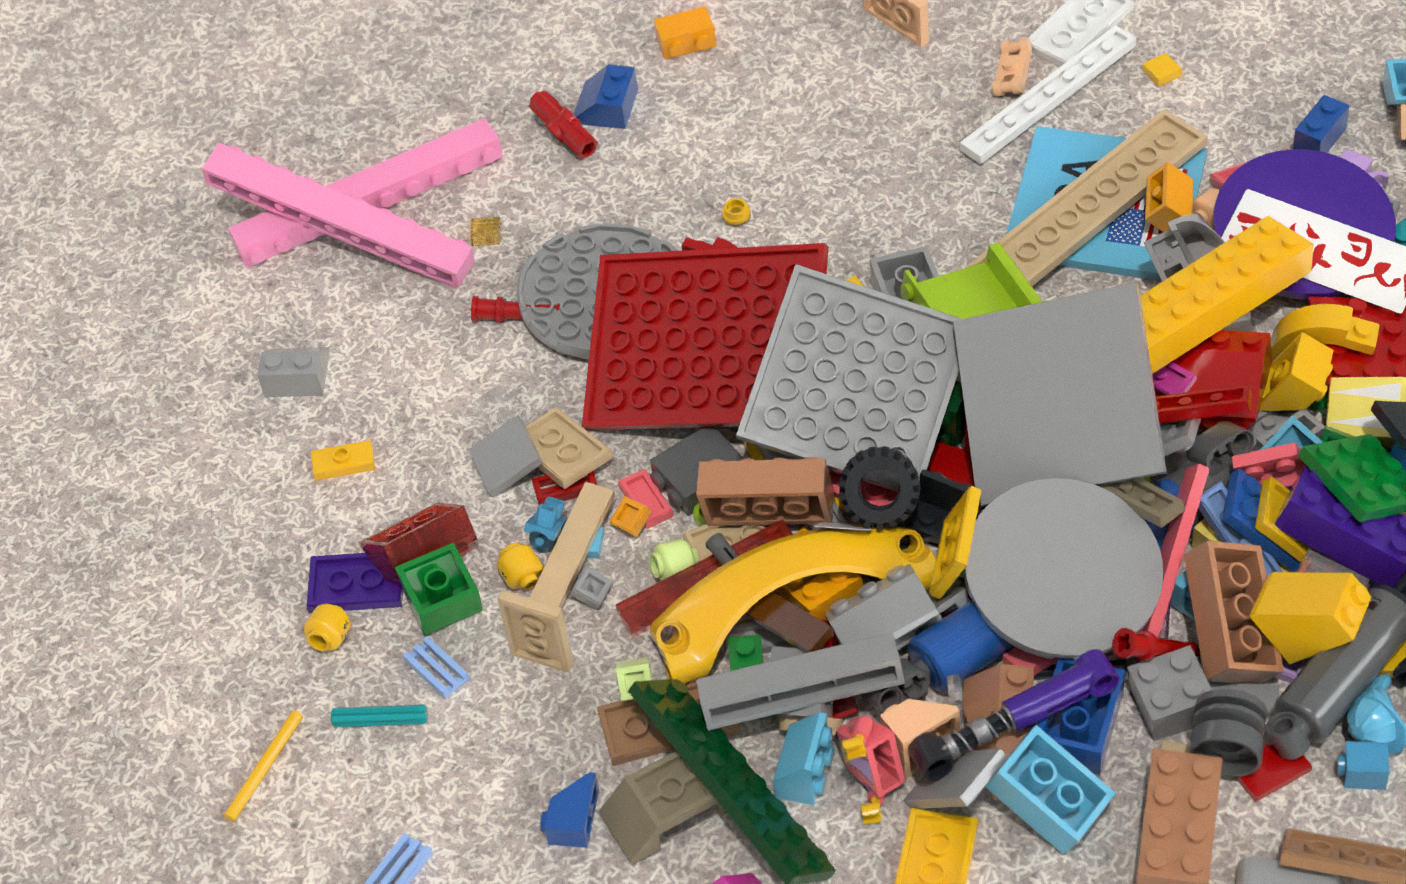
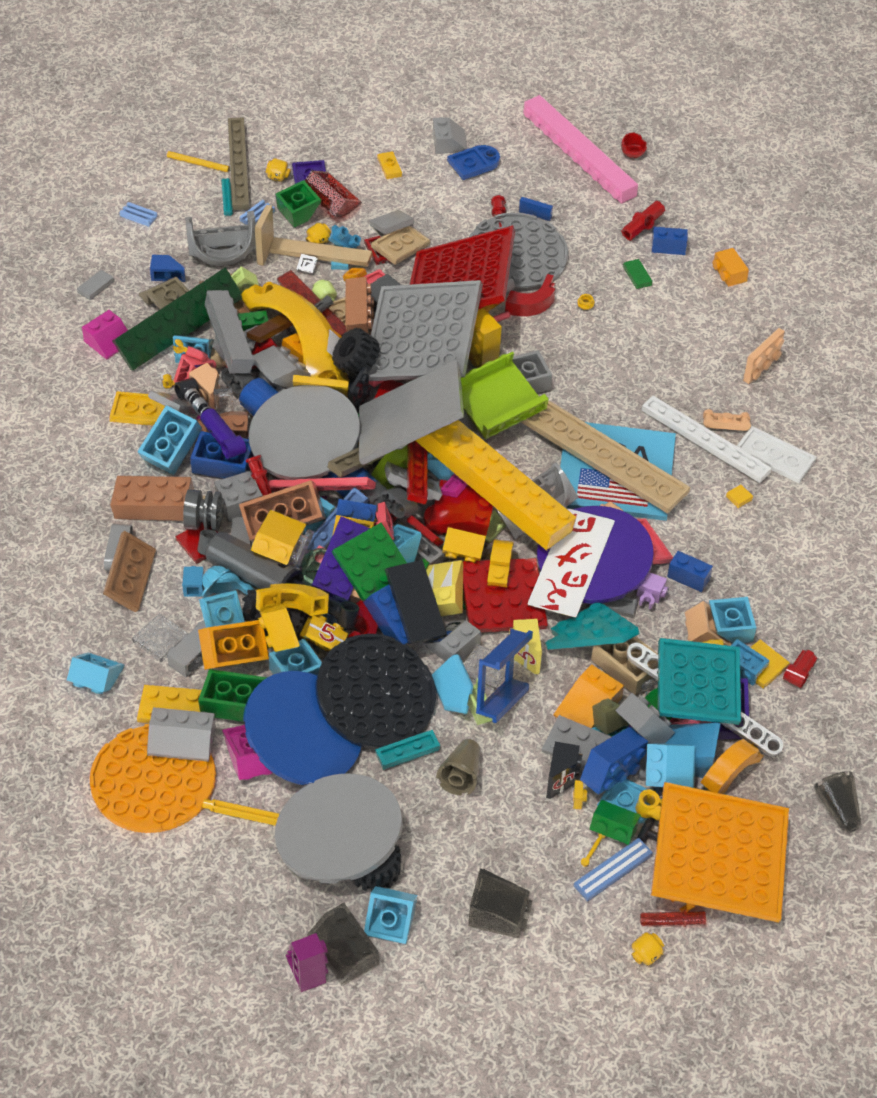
camera: 75 degrees right, 0 degrees up
(287, 693) = (238, 164): none -> dark tan plate
(339, 215) = (549, 133): bright pink brick -> none
(367, 338) = (474, 161): none -> blue plate
(378, 123) = (633, 145): none -> red hair
(485, 231) = (559, 200): clear yellow tile -> none
(506, 745) = (222, 236): none -> light grey piece
(507, 258) = (536, 208): none -> blue tile
(677, 146) = (637, 273): none -> green tile
(1168, 196) = (607, 488): light orange brick -> none
(1270, 421) = (425, 531): none -> red tile

